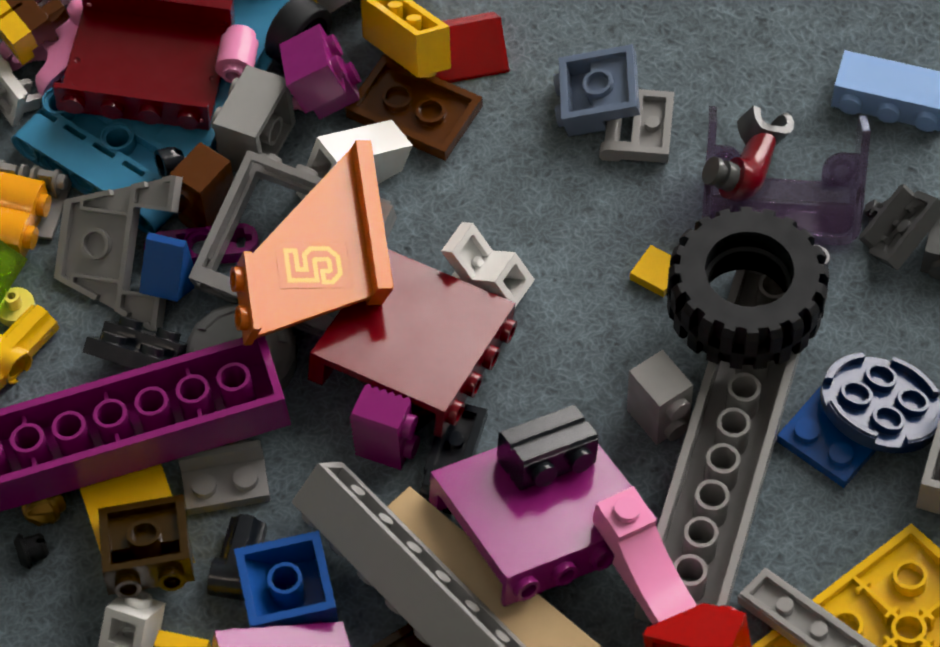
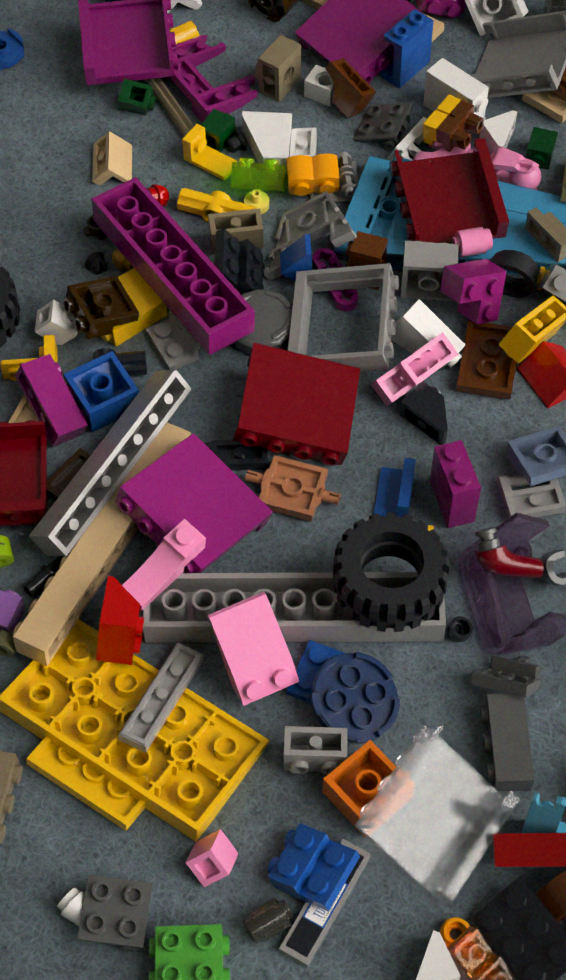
camera: 70 degrees right, 0 degrees up
(64, 337) = (240, 224): none -> dark tan brick
(167, 159) = (377, 229): black hinge -> none
(320, 255) = (319, 321): piece -> none
(384, 427) = (226, 405): magenta brick -> none
(411, 189) = (414, 369): none -> bright pink slope
(476, 196) = (426, 410): none -> black slope
(488, 269) = (372, 430): white brick -> none
(533, 385) = (293, 487): none -> nougat plate
(547, 448) = (229, 490): black brick -> none
(581, 270) = (395, 489): none -> blue panel
(614, 191) = (455, 484): none -> magenta brick
(660, 398) = (303, 550): light grey brick -> none
(801, 490) = (253, 648): none -> bright pink slope

